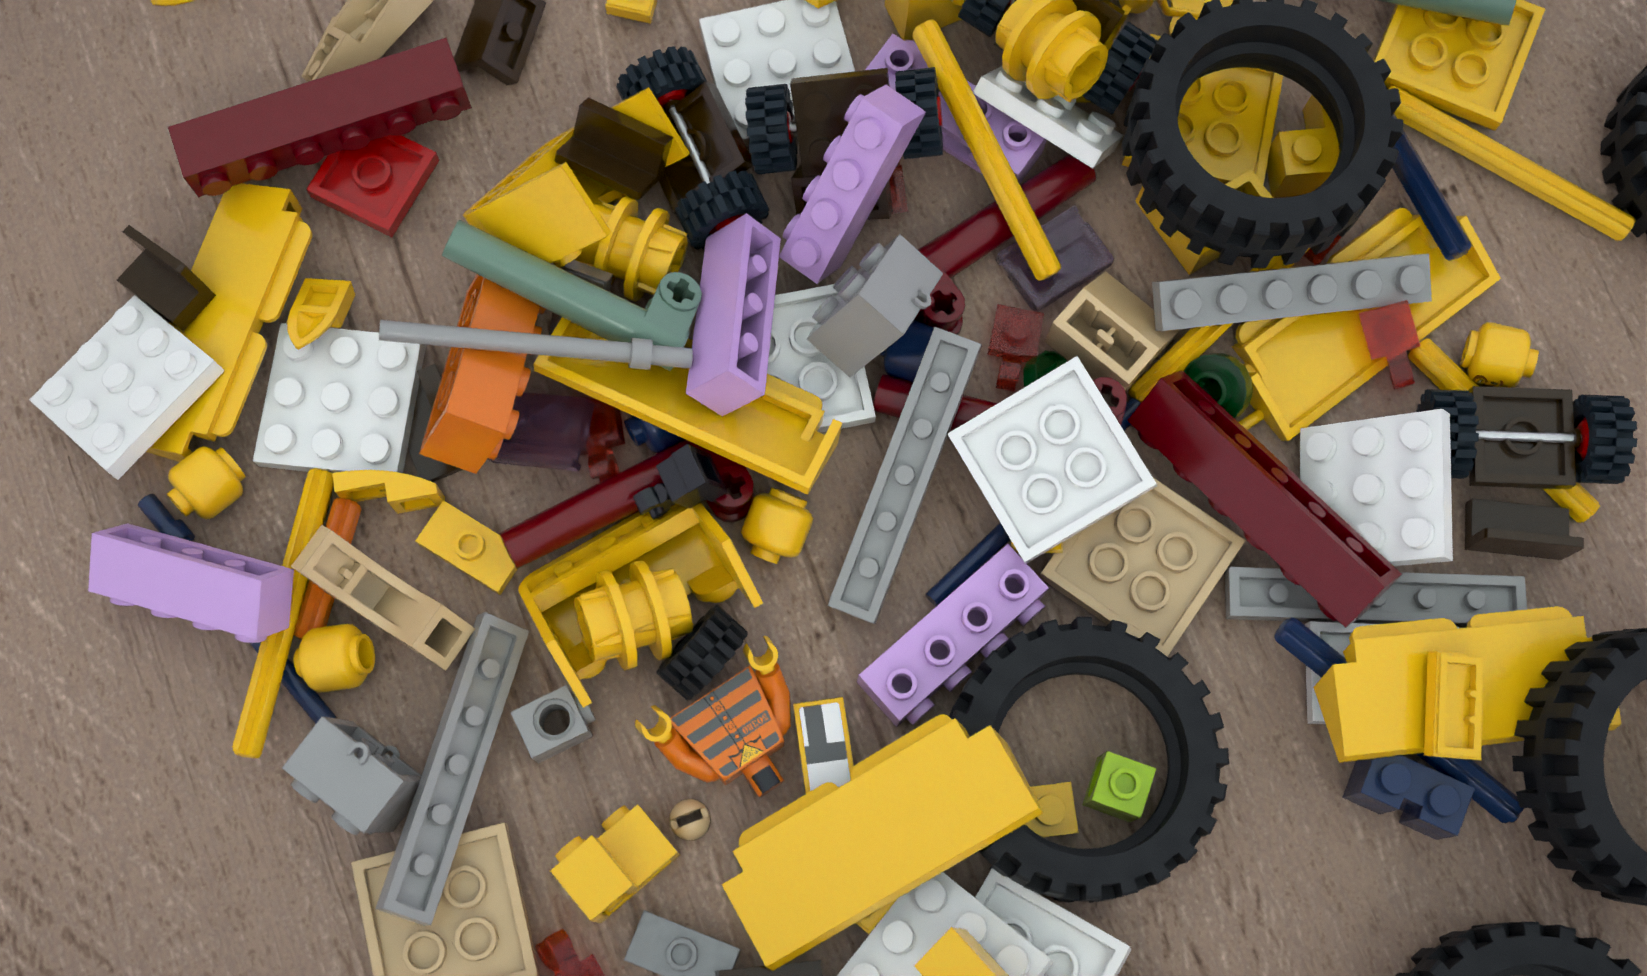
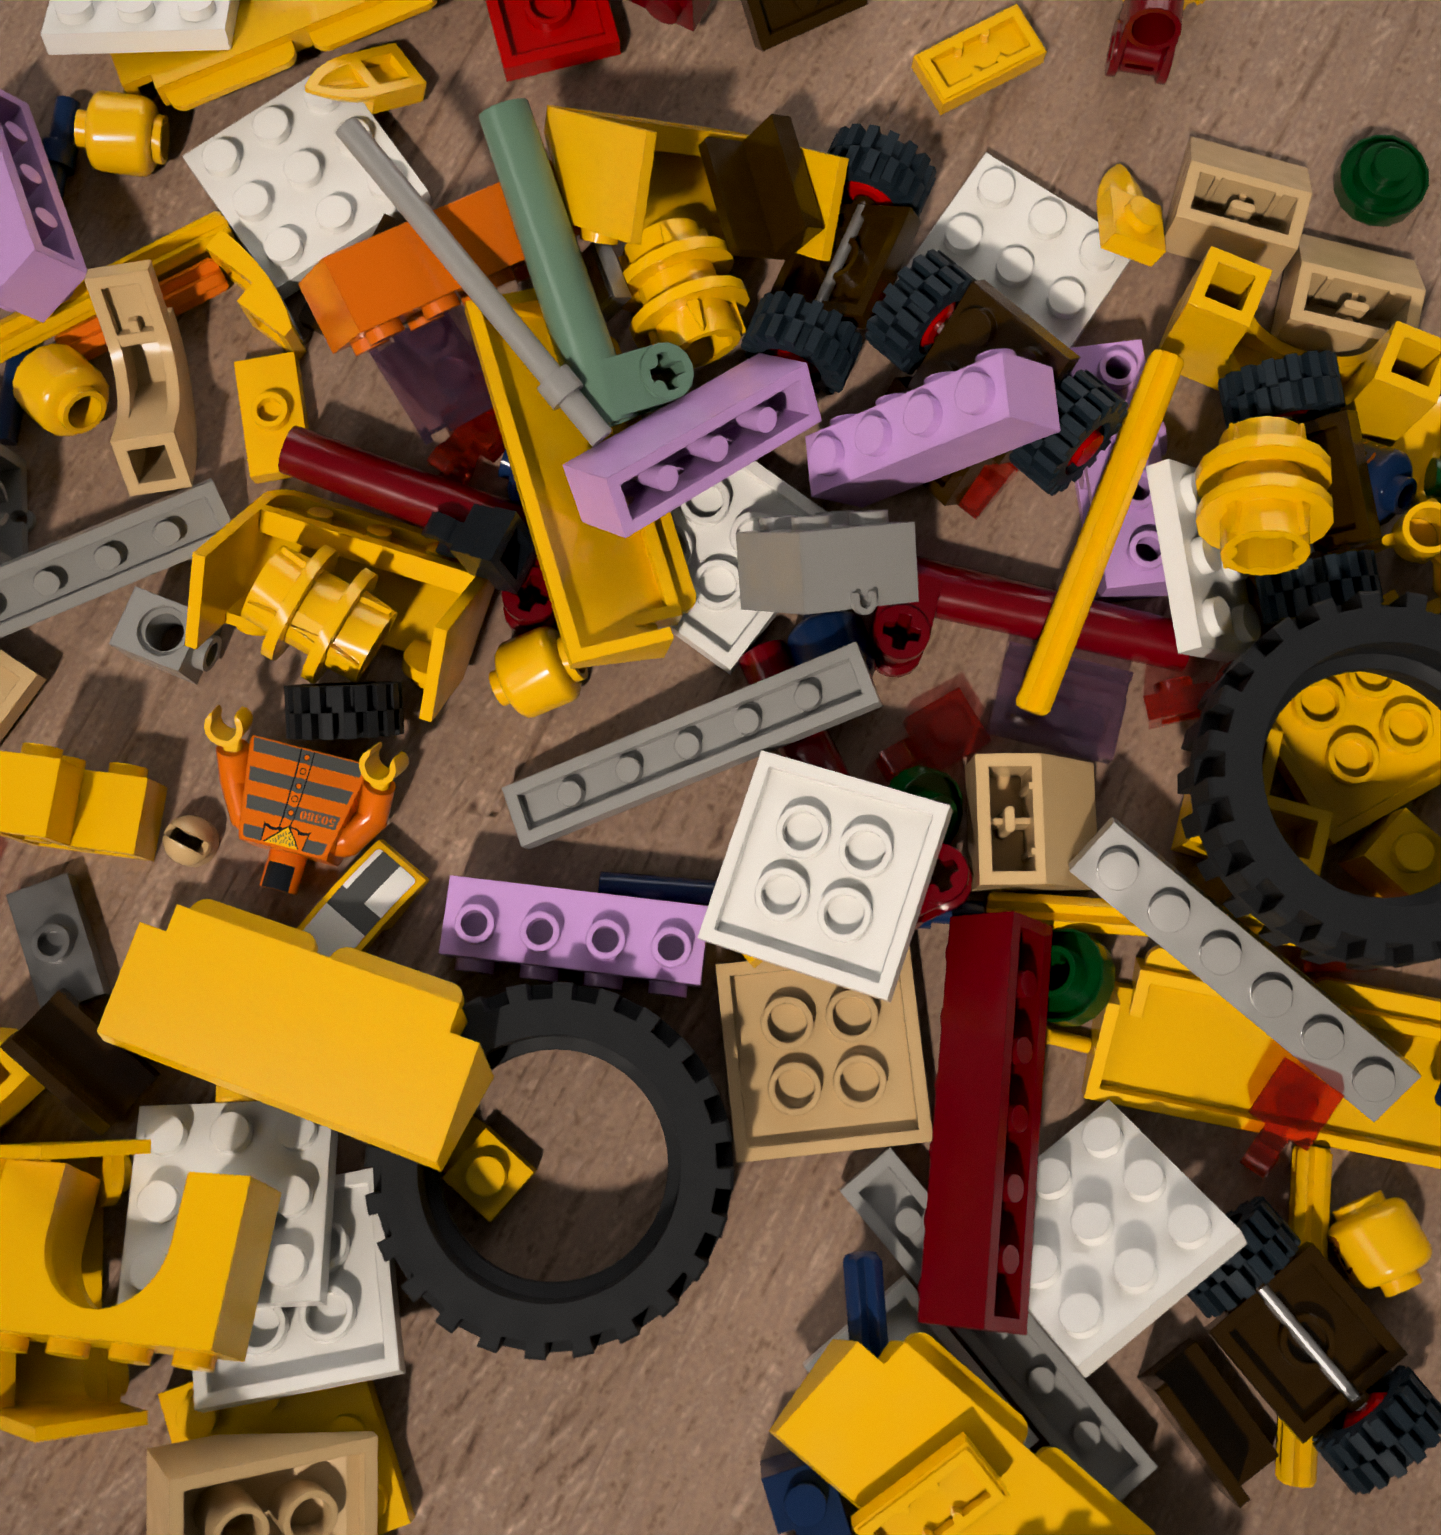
camera: 55 degrees right, 5 degrees up
(1112, 194) = (1176, 700): none -> clear red plate
(1119, 786) = (564, 1225): lime brick -> none

